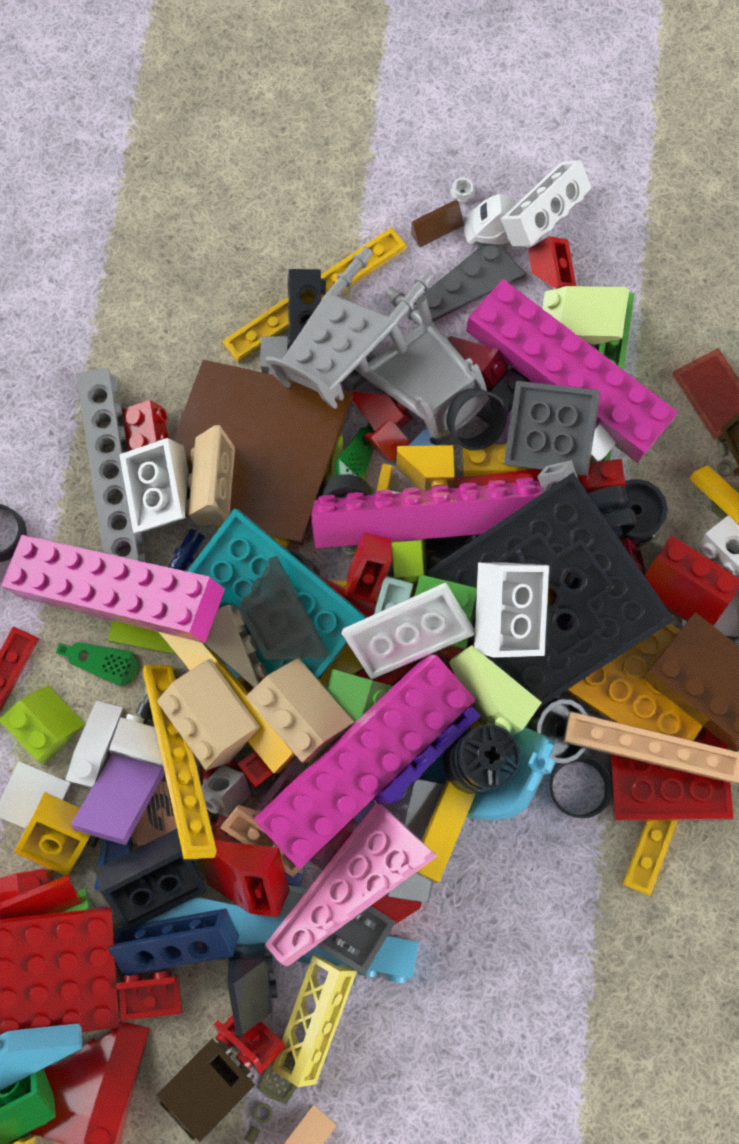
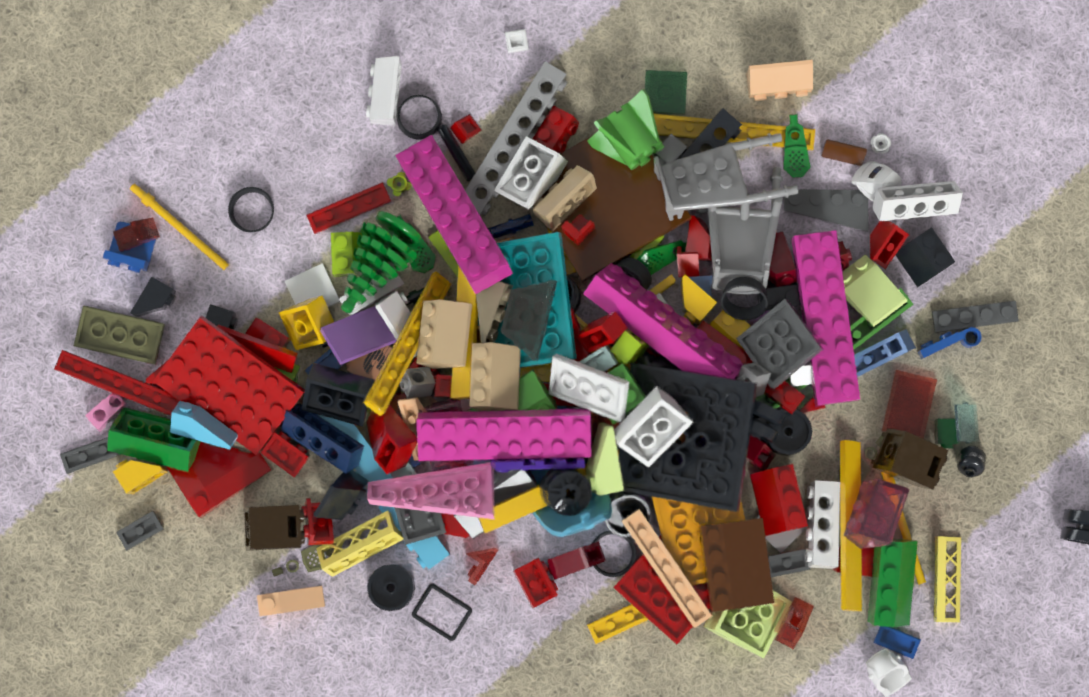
camera: 45 degrees right, 10 degrees up
(26, 608) = (405, 185): none -> lime plate
(32, 383) = (516, 41): none -> white tile
(53, 506) = (465, 128): none -> red slope
(63, 534) = (456, 152): none -> black axle
(71, 693) = (379, 255): none -> green plant
(220, 309) = (666, 91): none -> clear green plate
(220, 365) = (629, 133): none -> bright green brick
(252, 497) = (578, 229): none -> red panel
(317, 206) = (780, 79): none -> light nougat slope
(387, 254) = (795, 145): none -> green piece
(403, 1050) = (394, 575): none -> black wheel
(440, 1043) = (432, 626): none -> black piece
(458, 913) = (484, 558): none -> clear red slope
(533, 888) = (536, 583): none -> red bracket
(553, 827) = (576, 560): none -> dark red slope
(601, 249) = (924, 257): none -> black slope
(631, 468) = (810, 406): none -> red slope
(650, 357) = (883, 352): none -> medium blue slope
(693, 302) = (948, 339): none -> blue plate
(694, 265) = (975, 316): none -> dark grey plate

